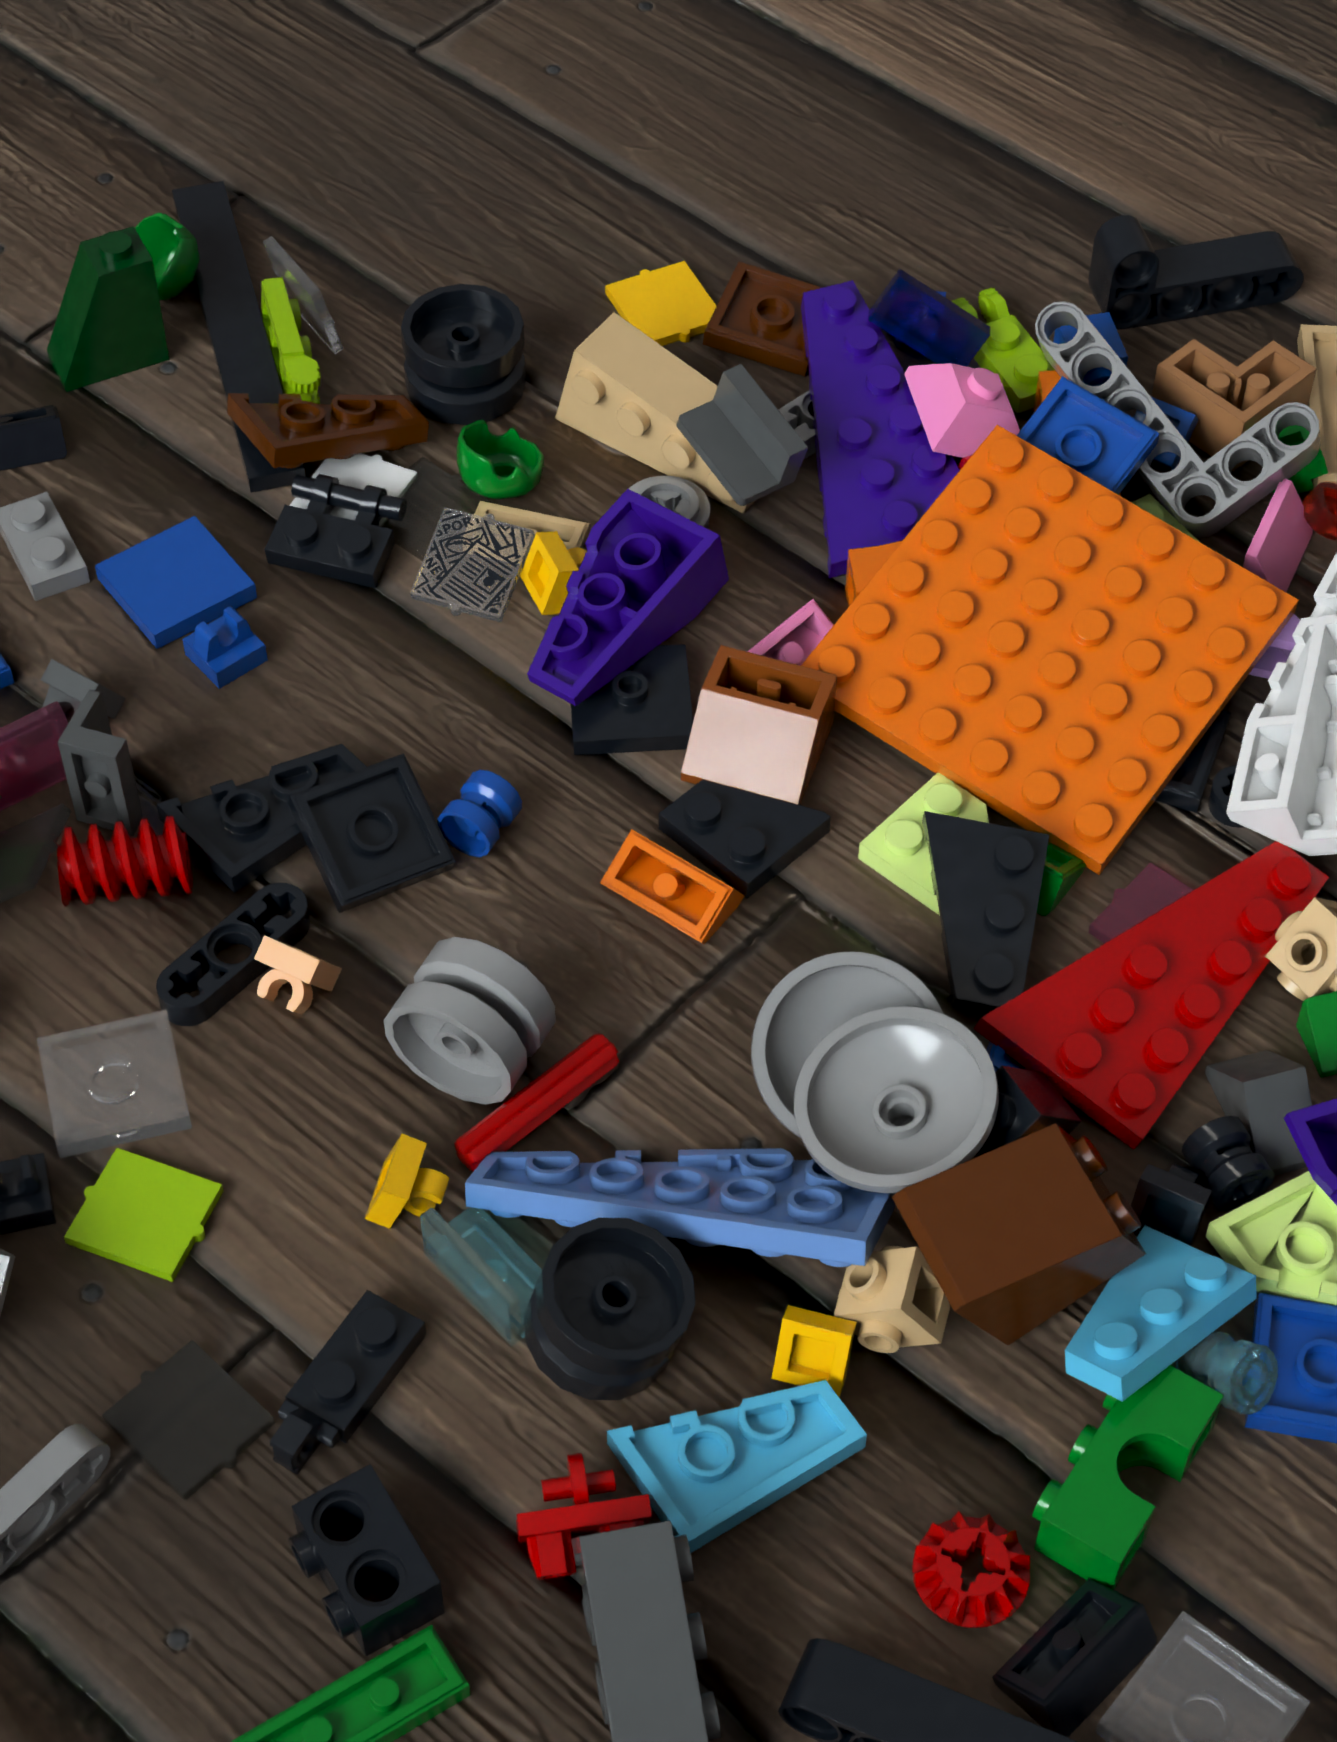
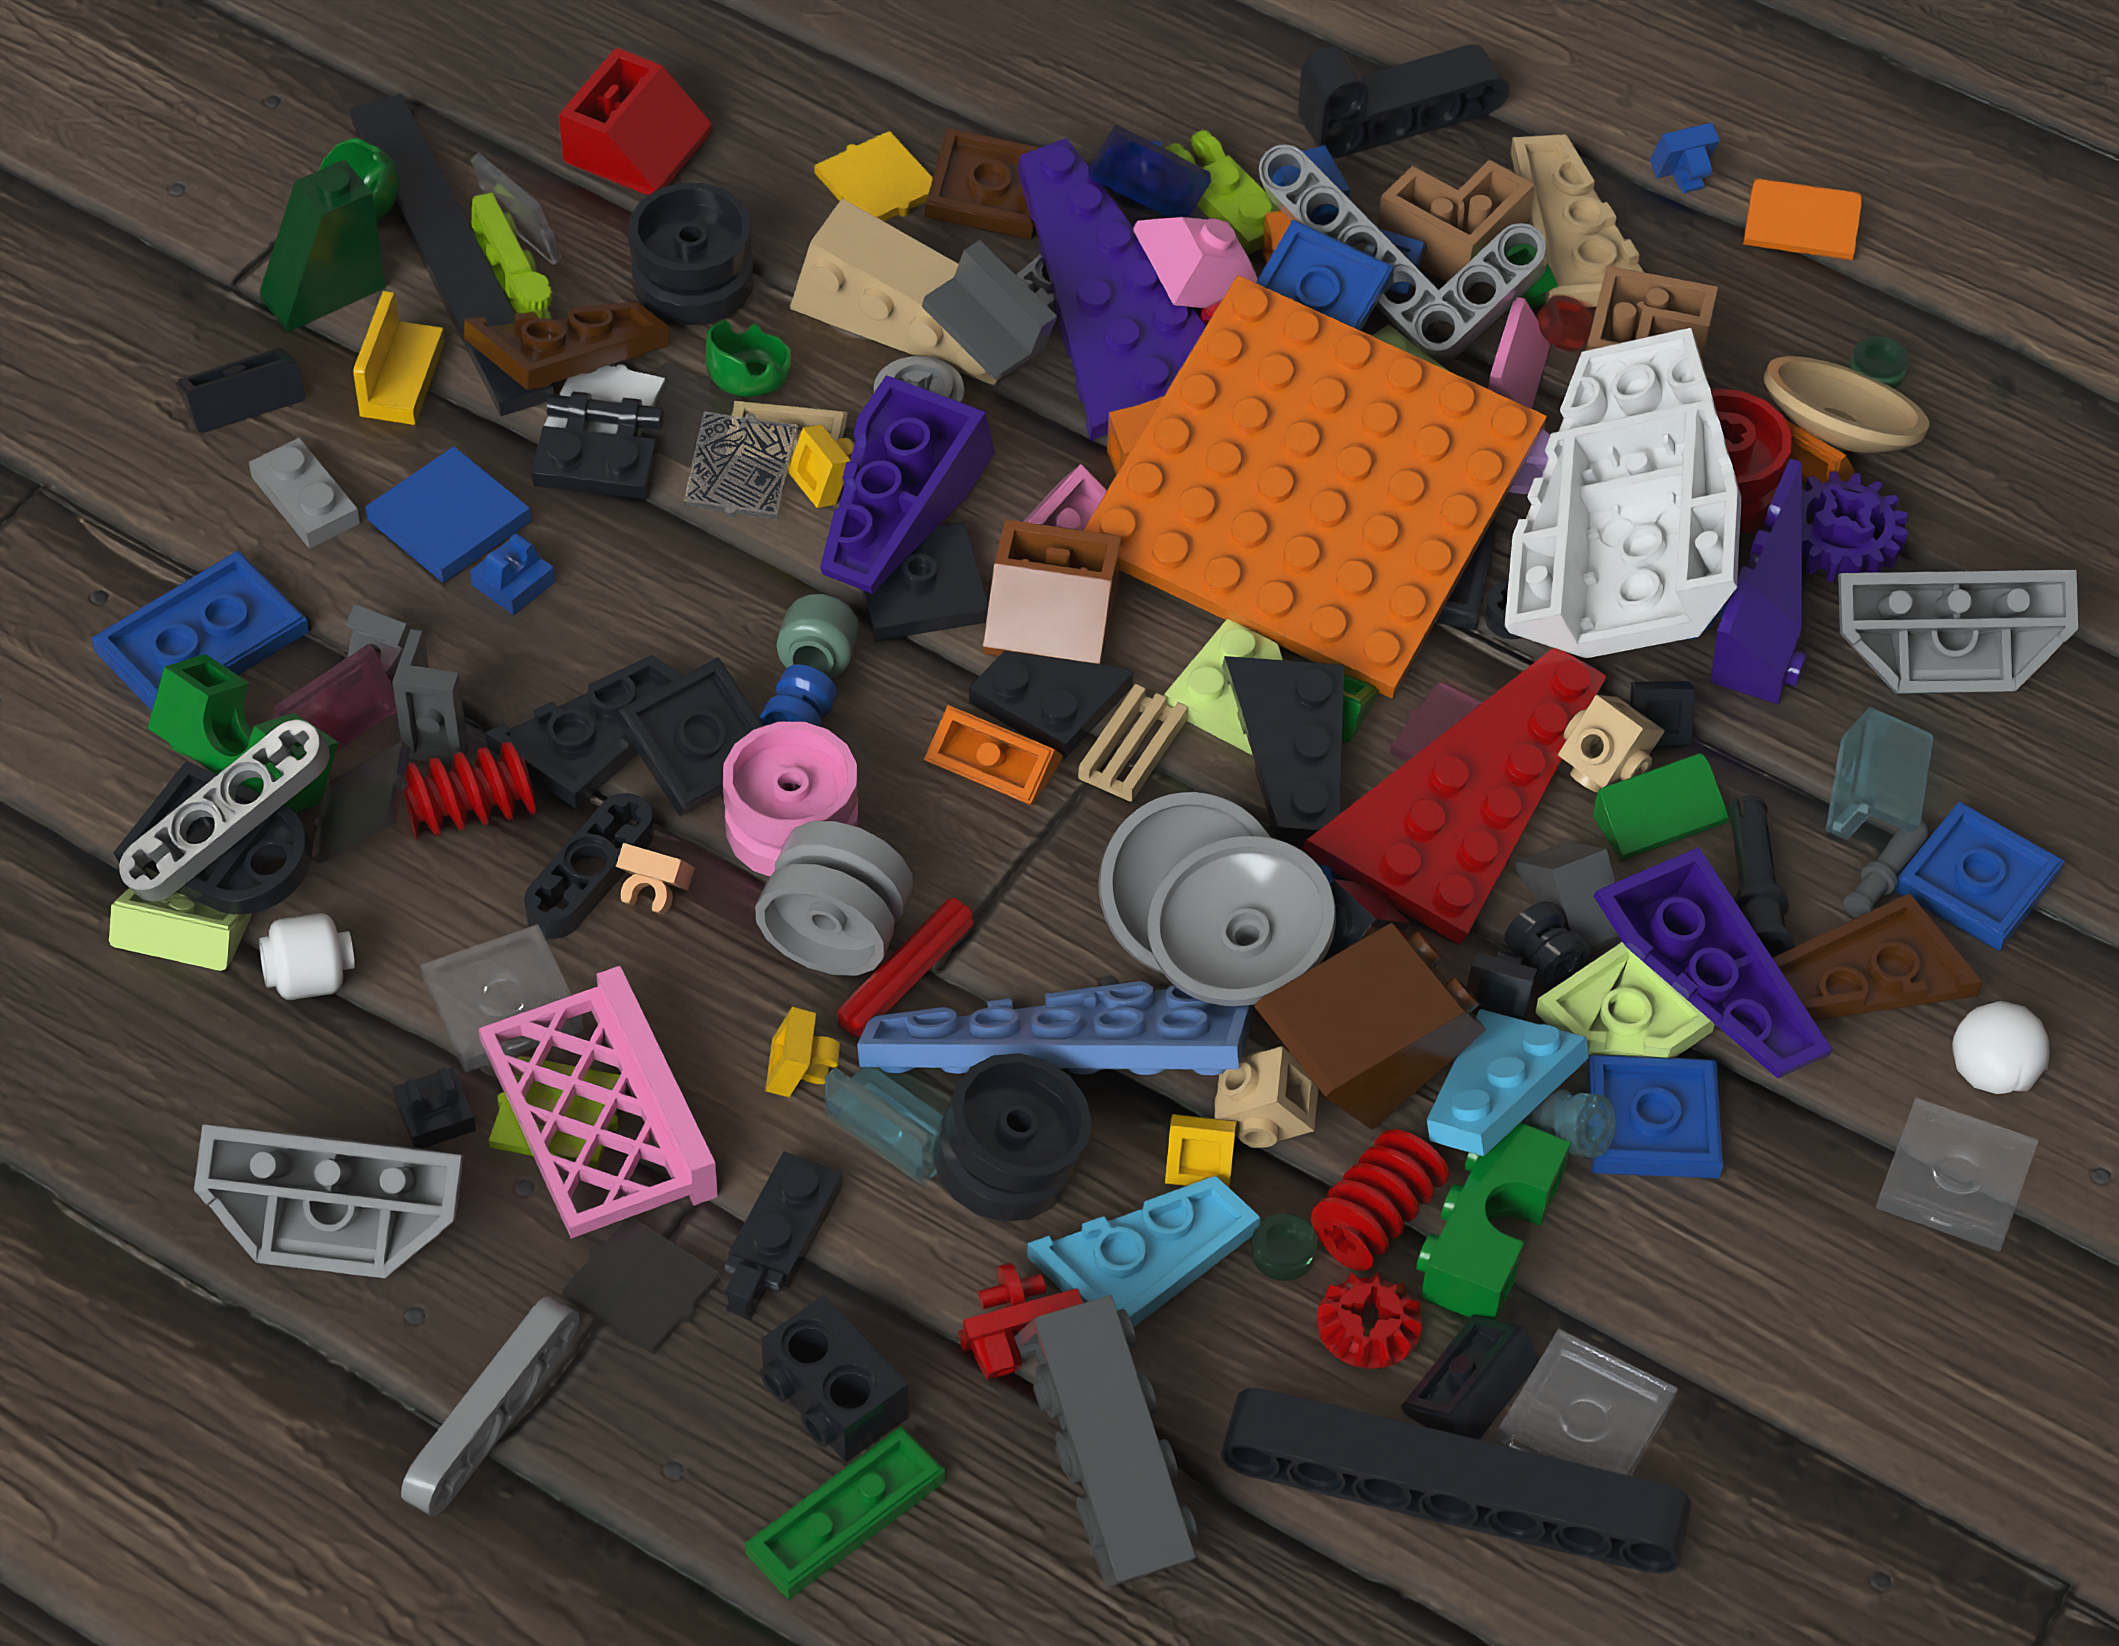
camera: 10 degrees left, 0 degrees up
(156, 430) = (395, 365): none -> yellow panel
(242, 1216) = (653, 1093): none -> bright pink fence
(432, 227) = (632, 124): none -> red slope
(445, 888) = (781, 781): none -> bright pink wheel
(514, 742) = (818, 634): none -> sand green head
(844, 857) = (1151, 710): none -> tan tile
(890, 1469) = (1284, 1247): none -> clear green tile
(997, 1425) = (1378, 1198): none -> red piece

